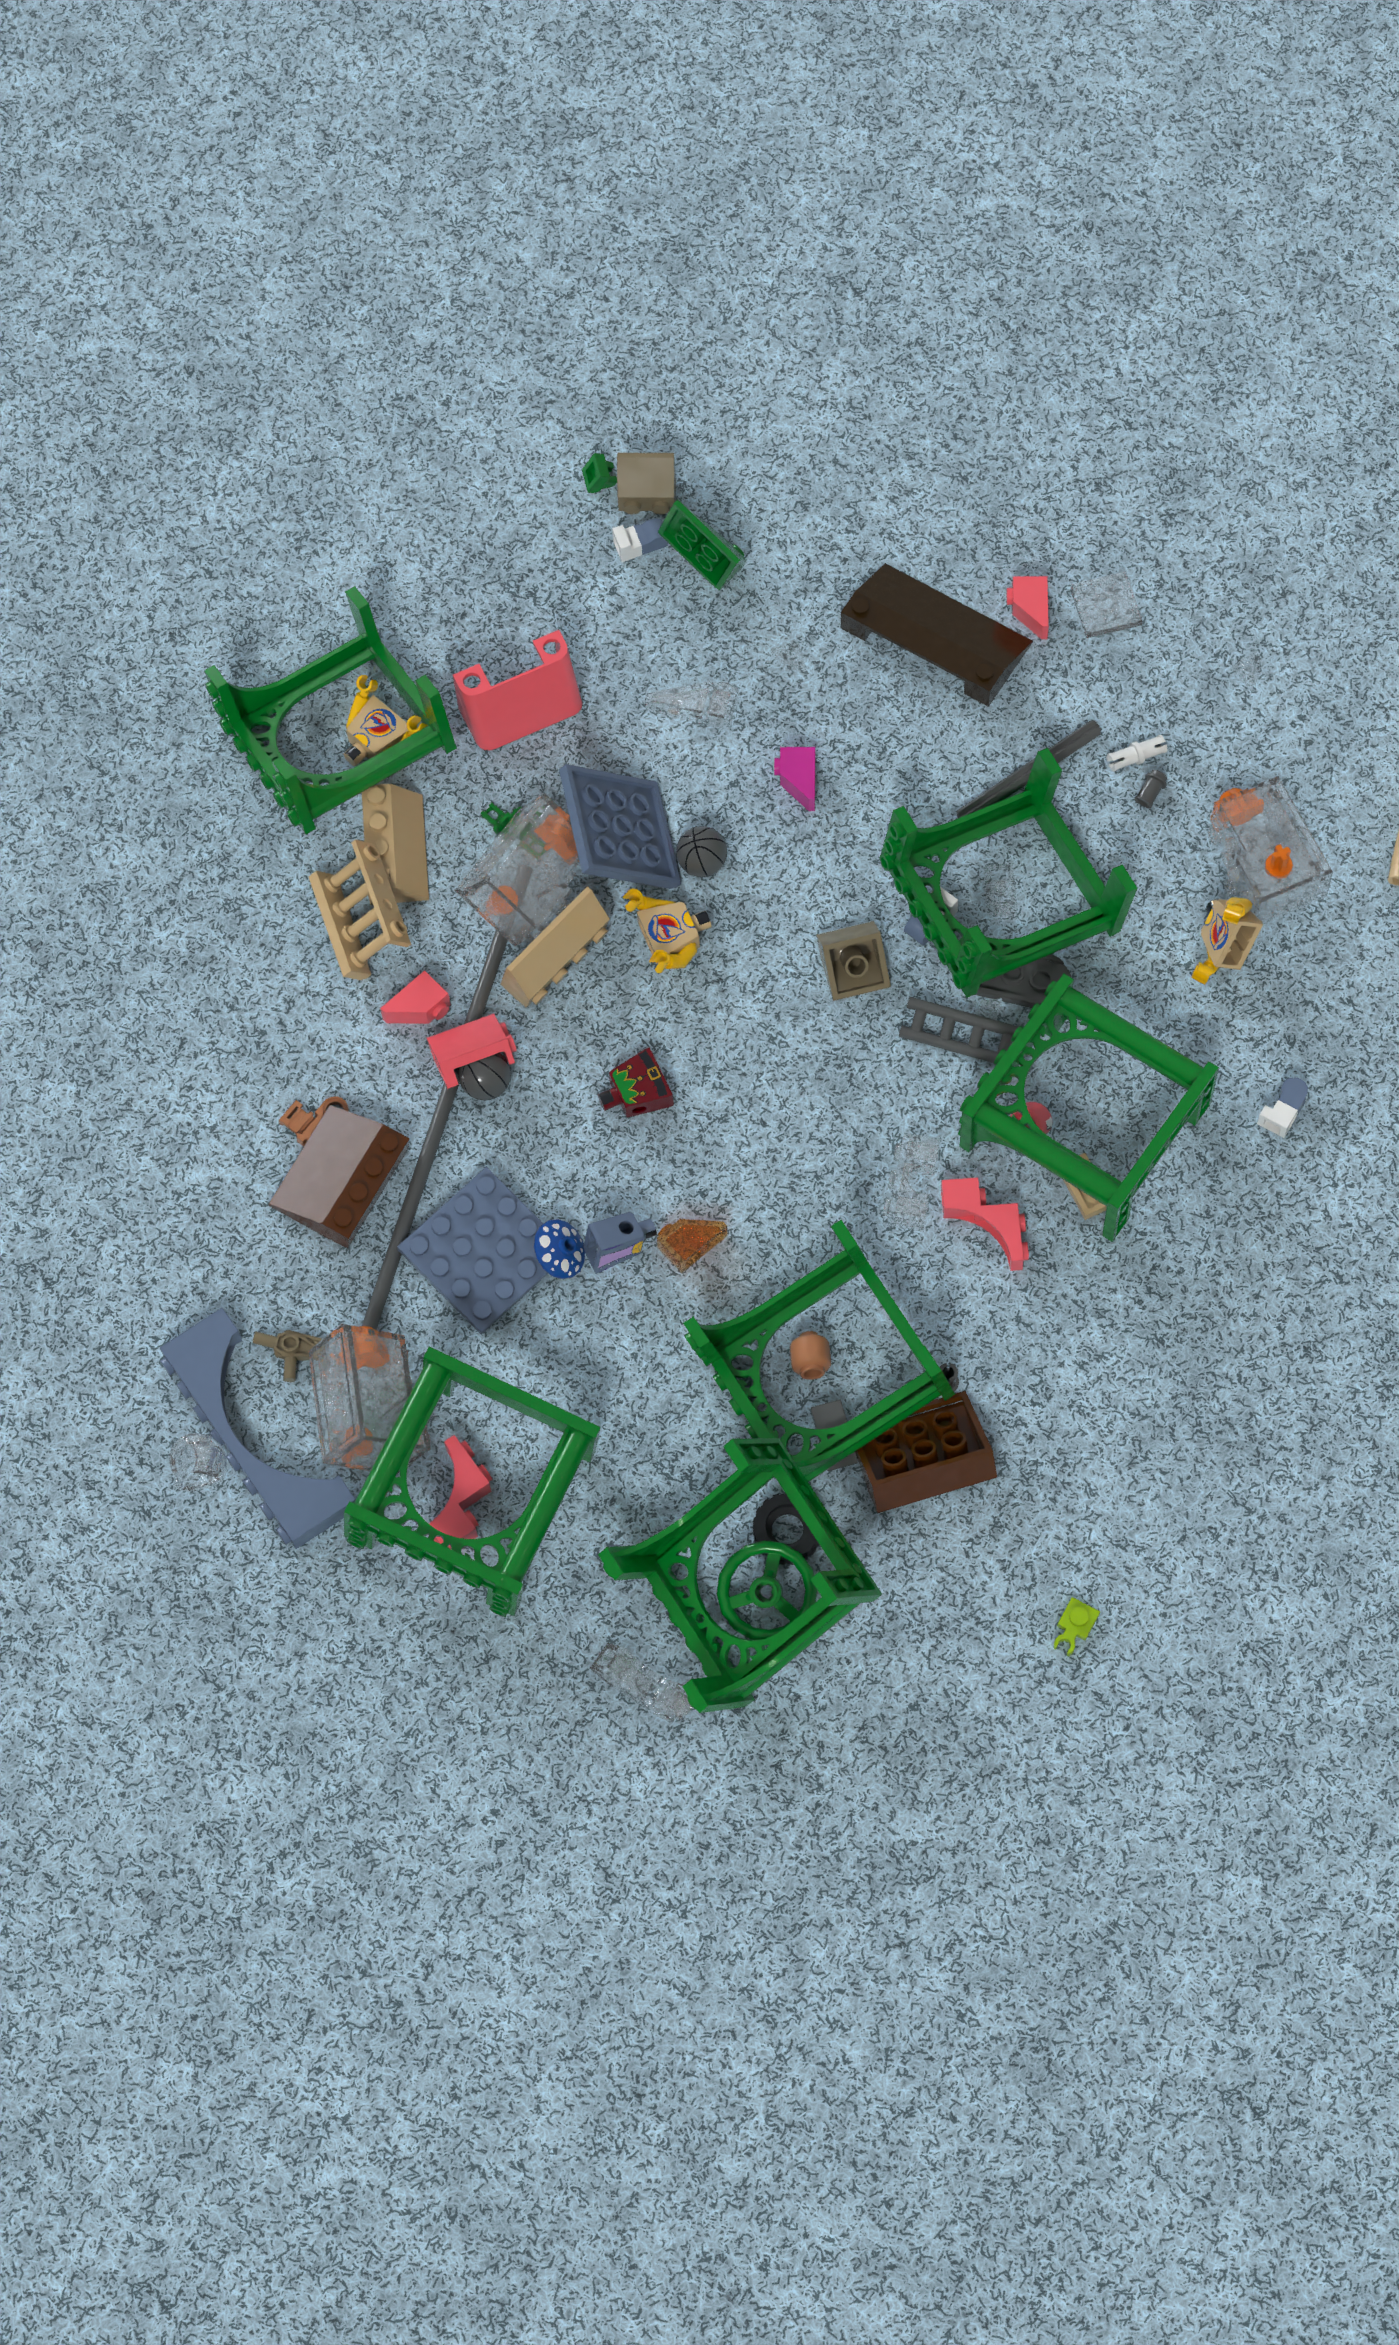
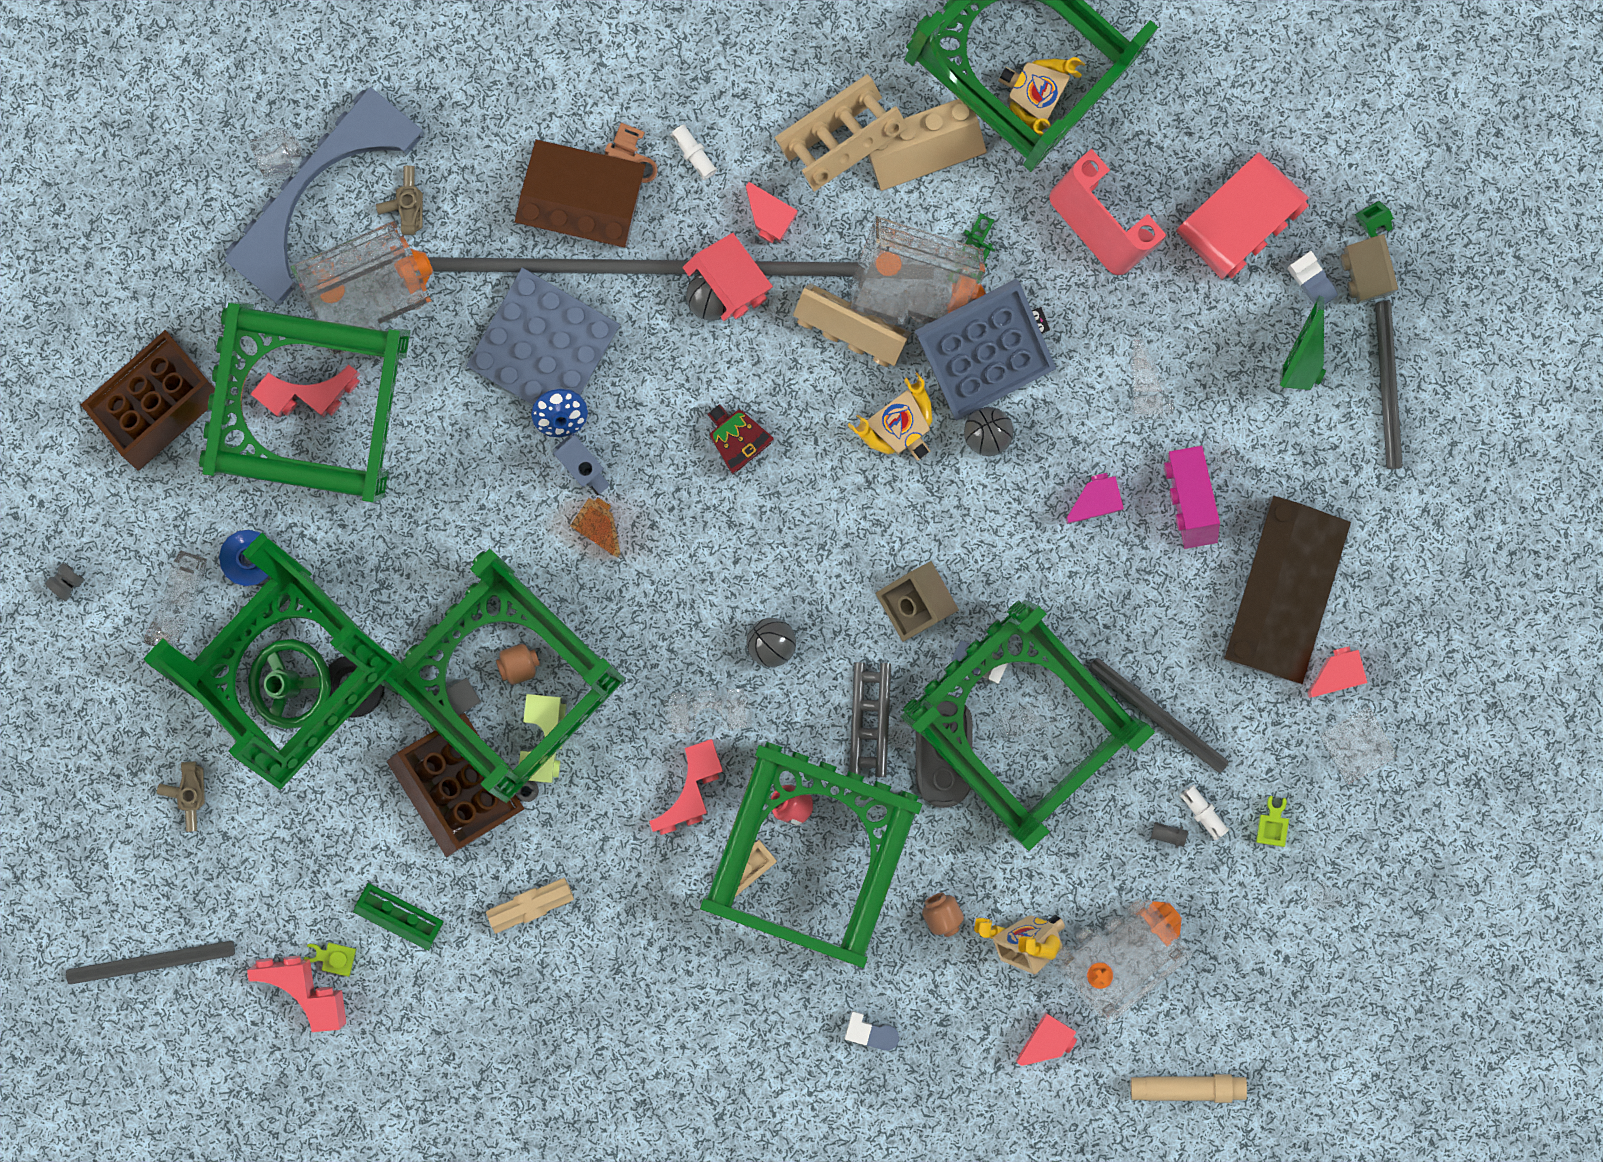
camera: 70 degrees right, 20 degrees up
(332, 1059) = (693, 152): none -> white pin
(418, 1660) = (151, 401): none -> reddish brown slope
(562, 578) = (1242, 216): none -> coral windscreen
(587, 1803) = (60, 586): none -> dark grey wheel
(606, 1592) = (233, 562): none -> blue dish
(762, 500) = (1388, 385): none -> dark grey axle
(822, 686) = (1193, 497): none -> dark pink wedge
(857, 1101) = (771, 642): none -> dark grey piece
(857, 1728) = (190, 794): none -> dark tan piece
(872, 1339) = (546, 713): none -> yellowish green arch
(1032, 1820) = (150, 962): none -> dark grey axle
(1051, 1550) = (395, 919): none -> green slope
(1069, 1406) = (529, 905): none -> tan piece
(1083, 1663) = (322, 1007): none -> coral arch
(1166, 697) = (1271, 827): none -> lime plate
(1179, 1010) = (942, 914): none -> nougat head
(1332, 944) = (1047, 1041): none -> coral slope

